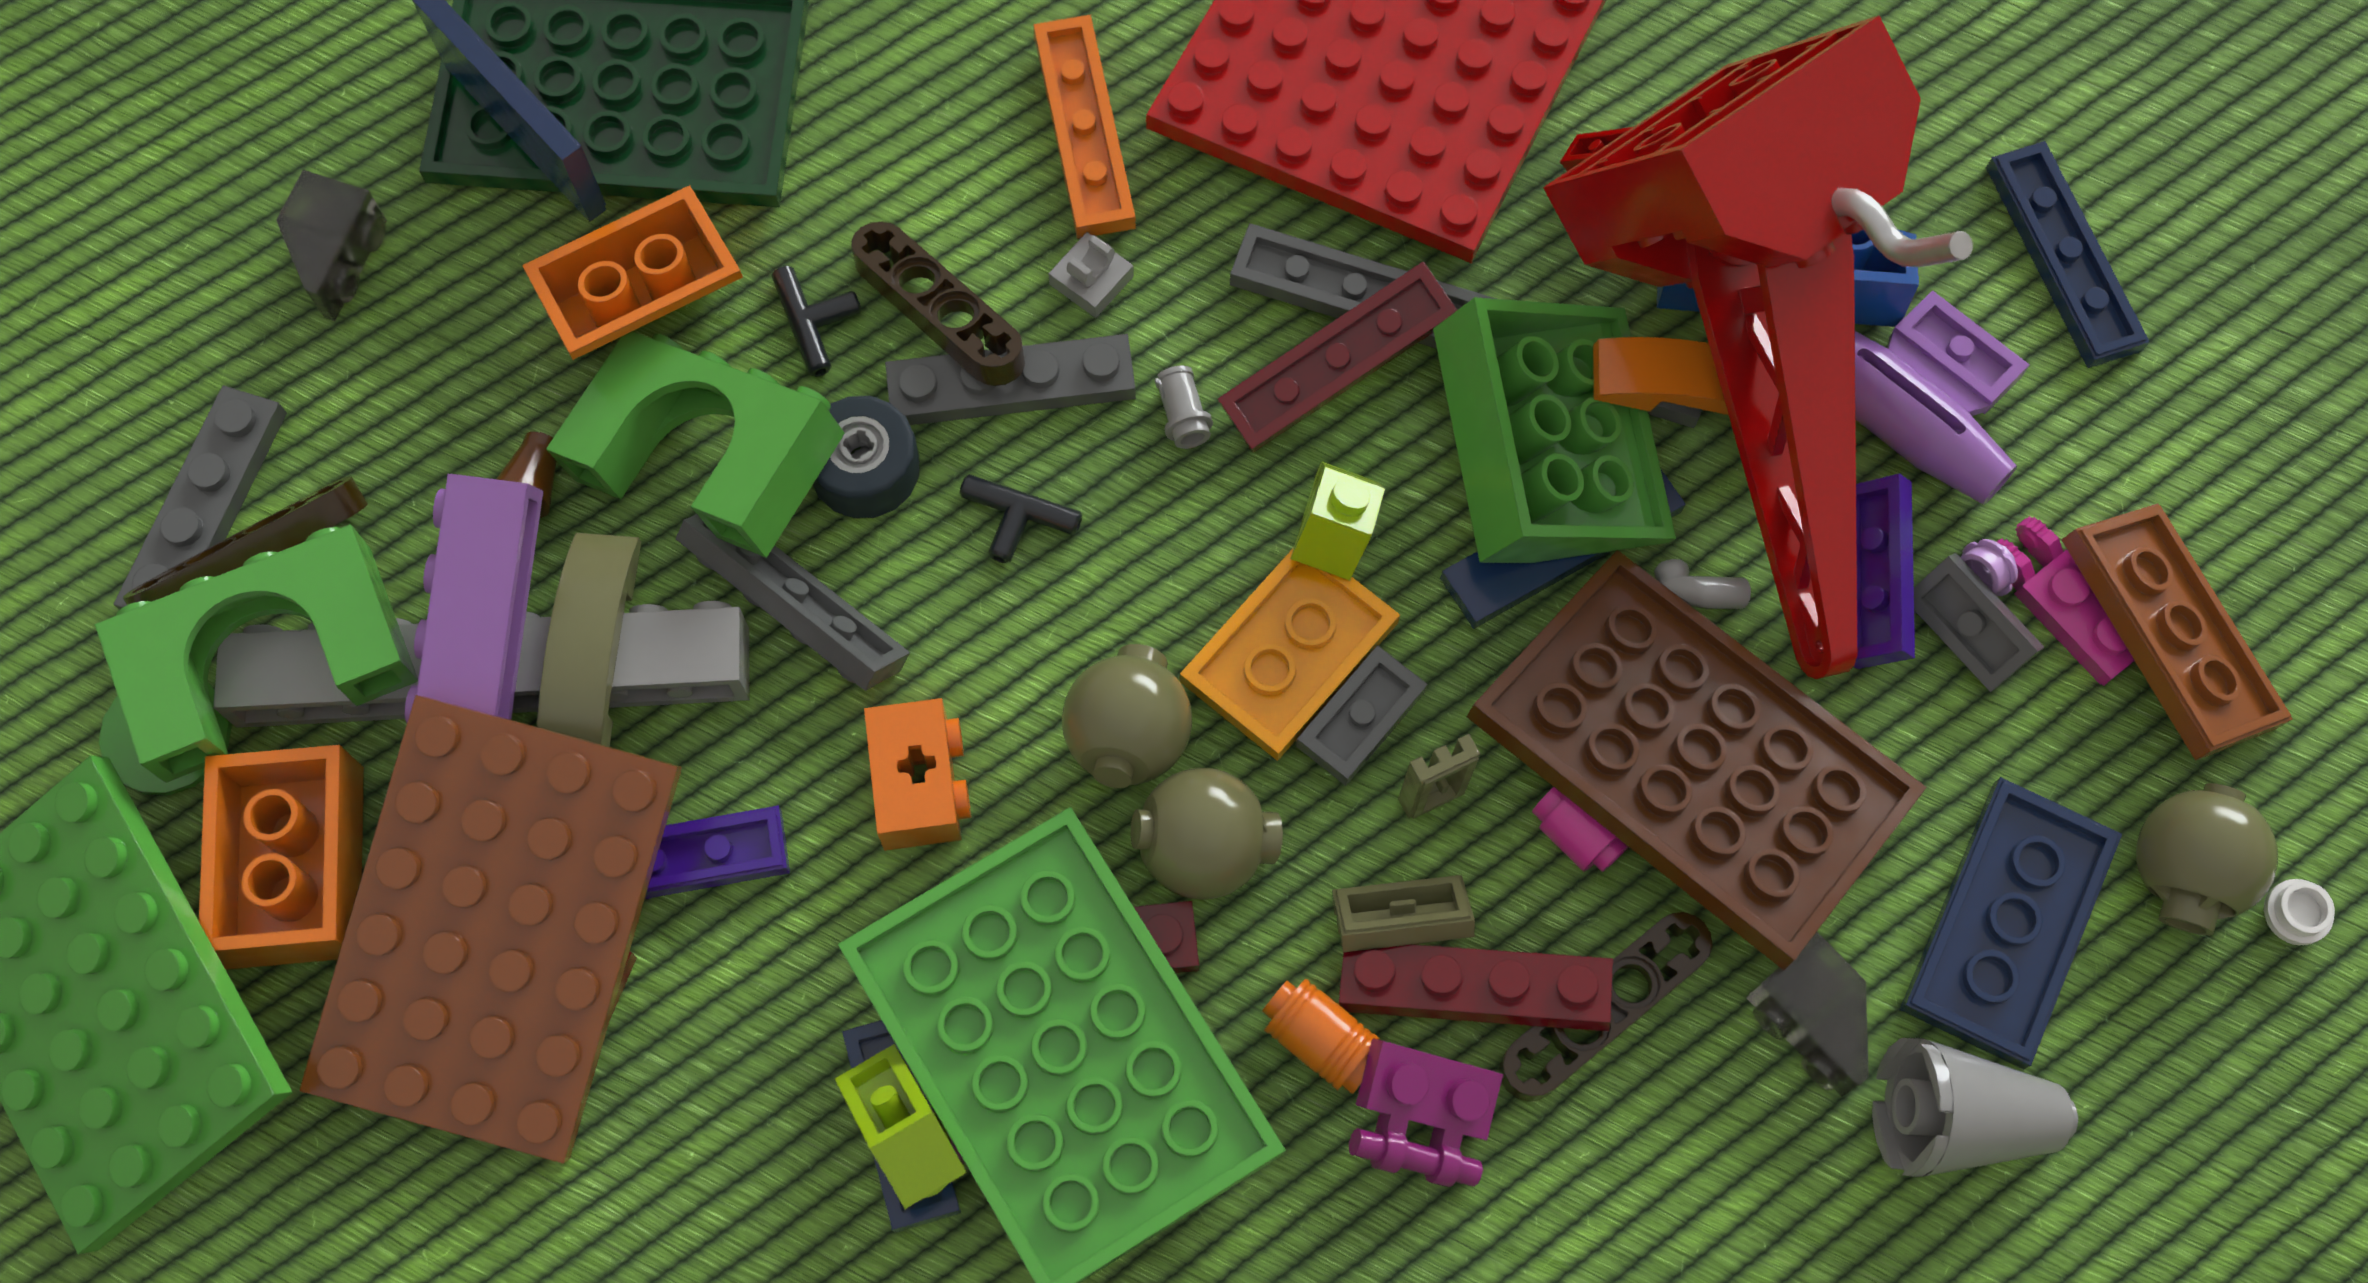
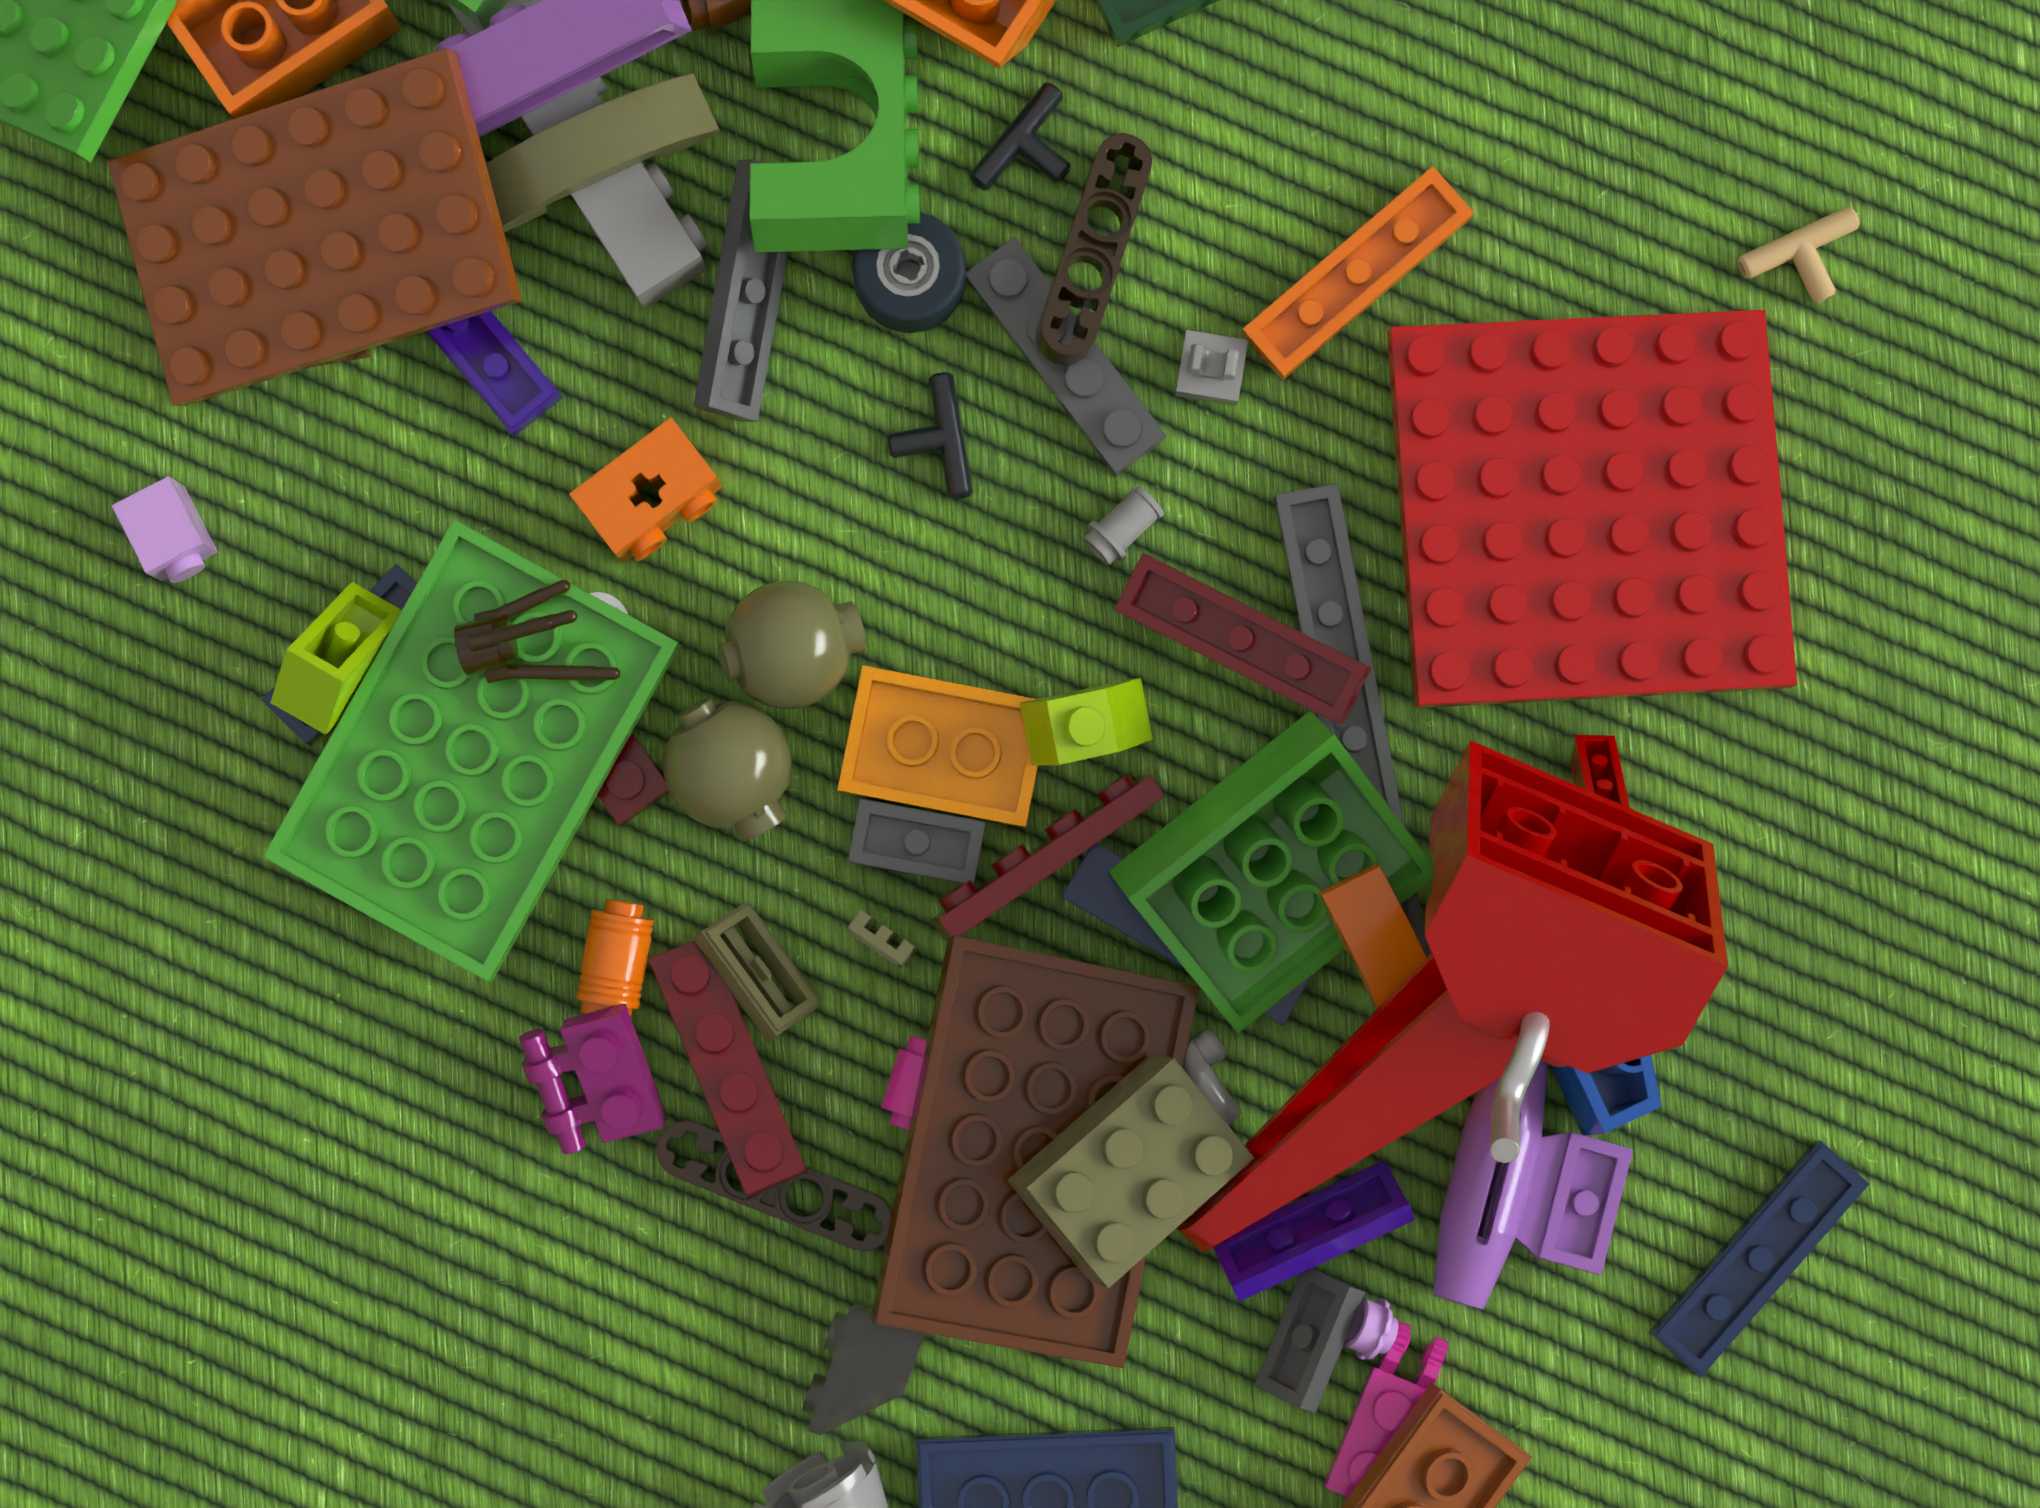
camera: 65 degrees right, 15 degrees up
(677, 1233) = (165, 531): none -> lavender brick
(974, 965) = (491, 641): none -> dark brown plant
(1440, 630) = (1022, 869): none -> dark red plate
(1759, 674) = (1131, 1169): none -> olive brick

